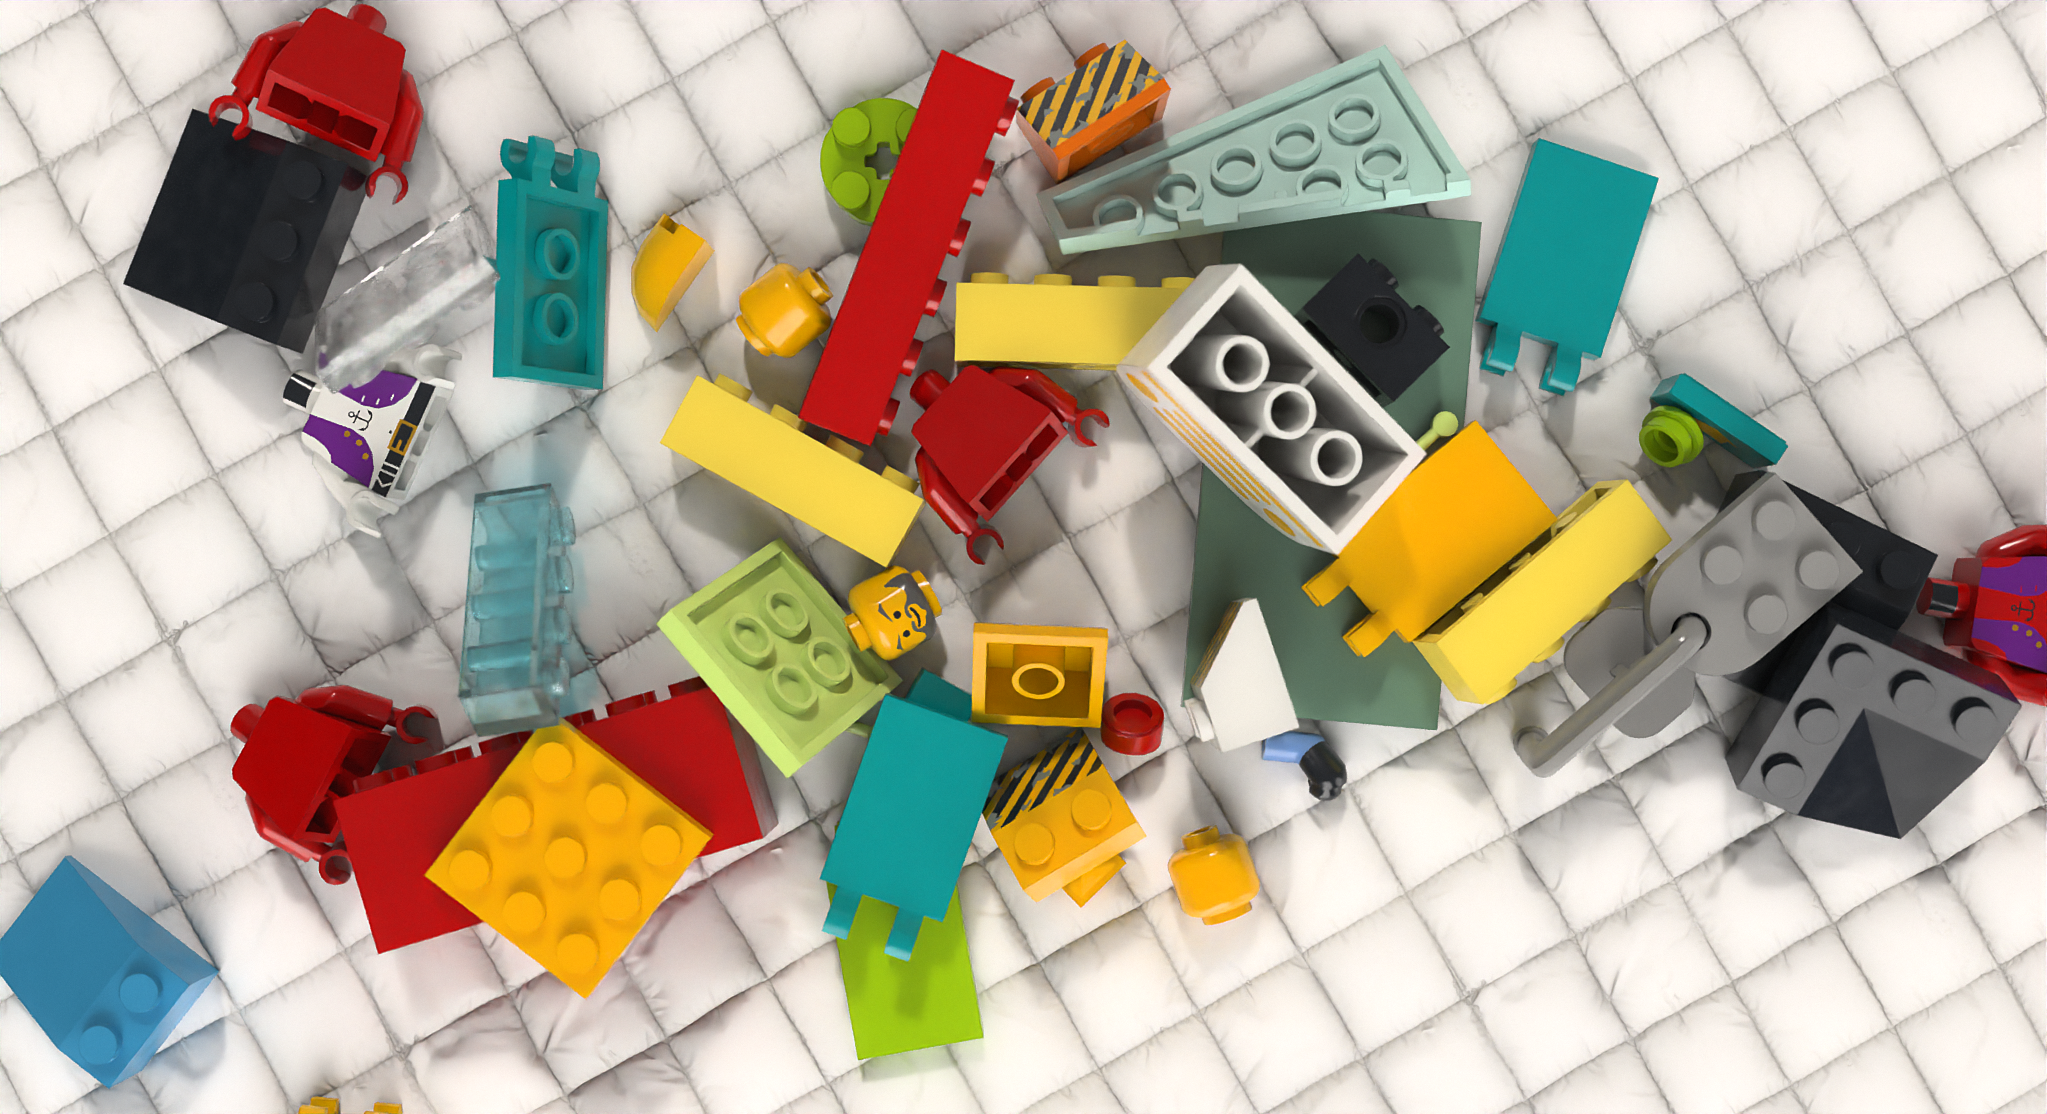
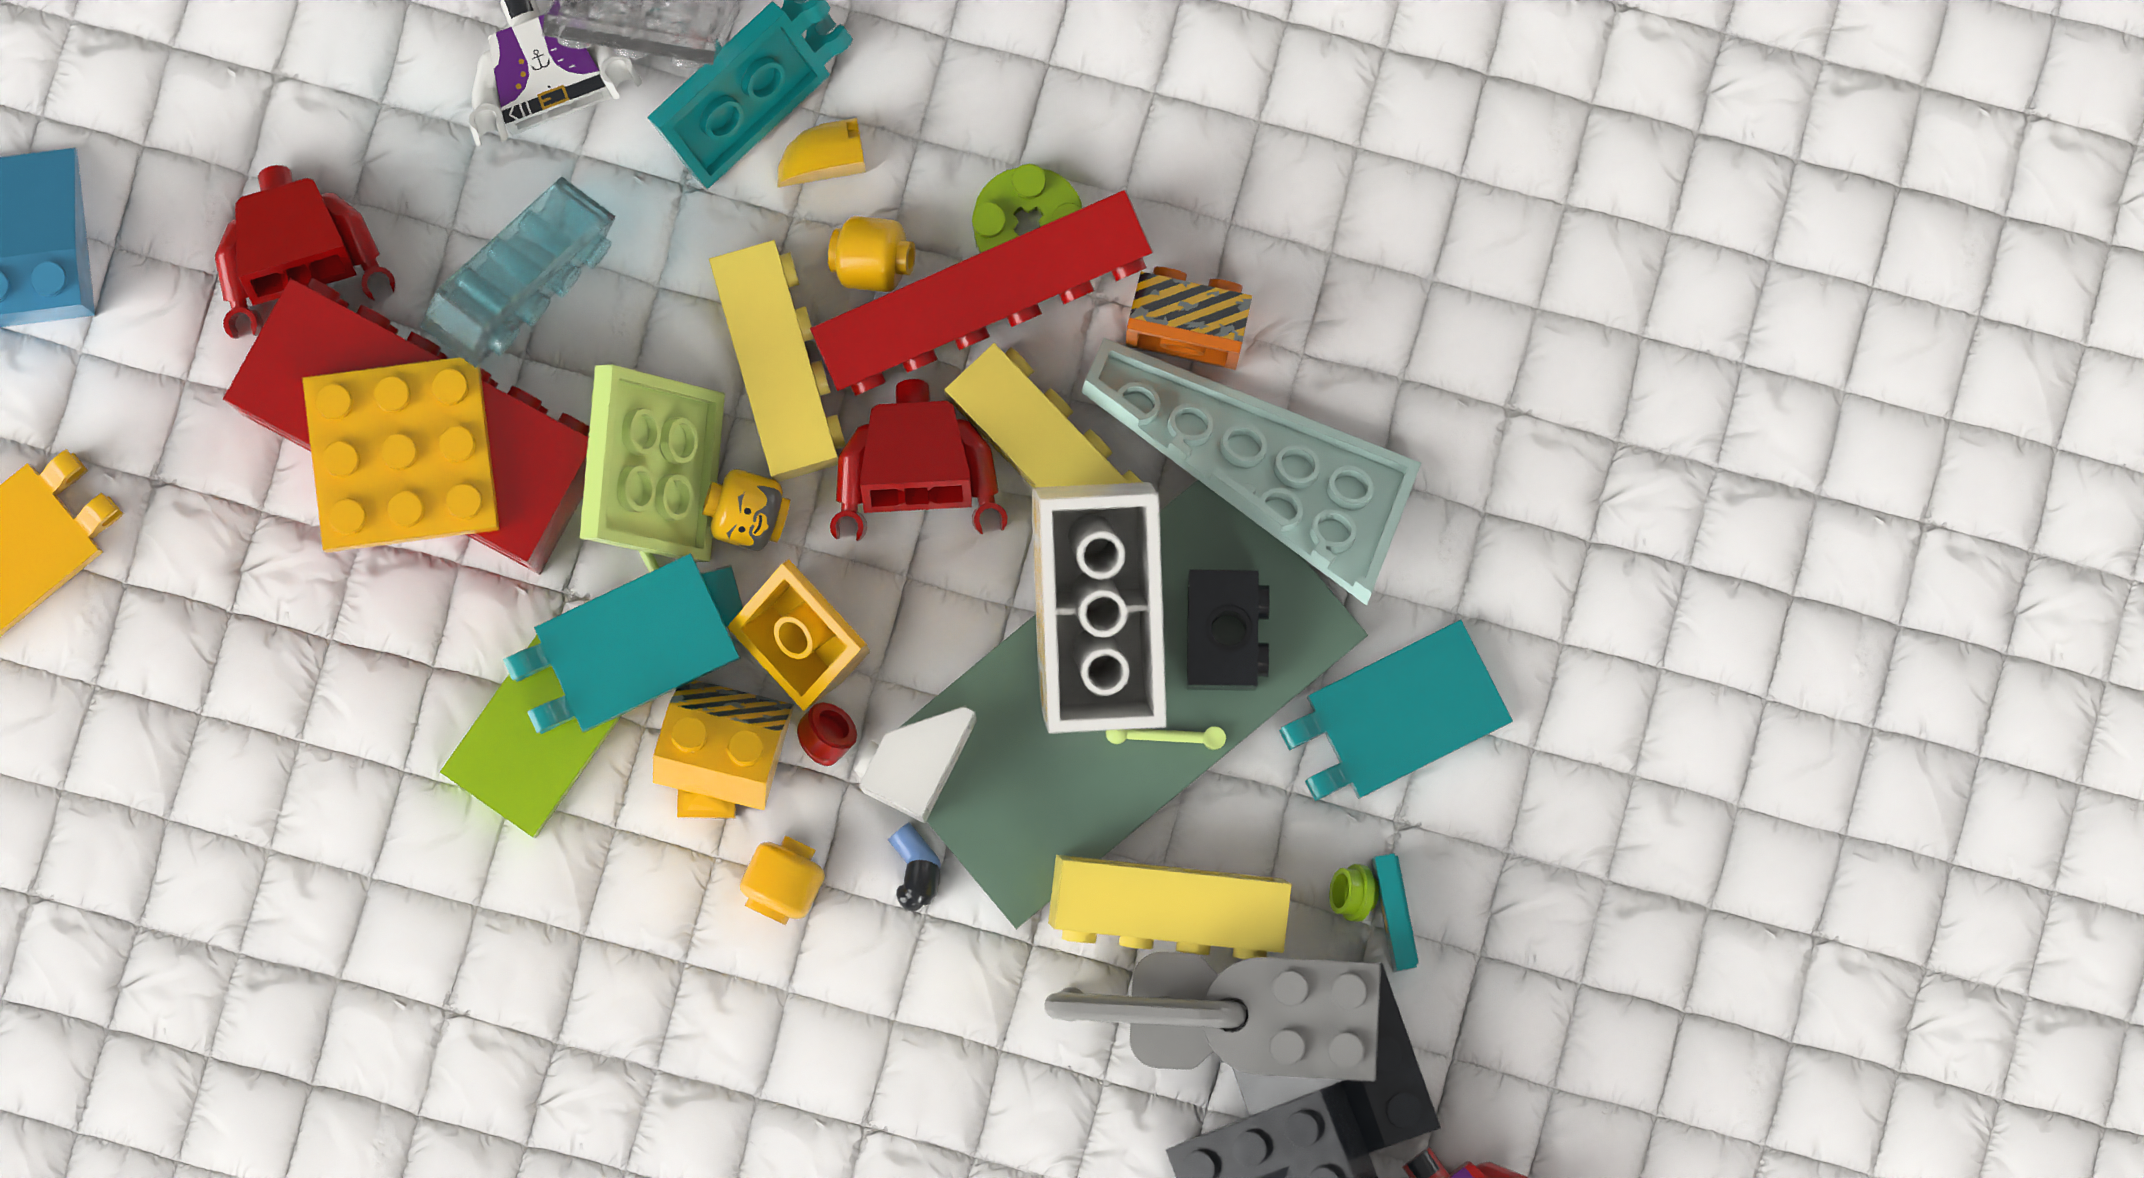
camera: 45 degrees right, 5 degrees down
(1434, 540) = (1131, 801): yellow tile -> none

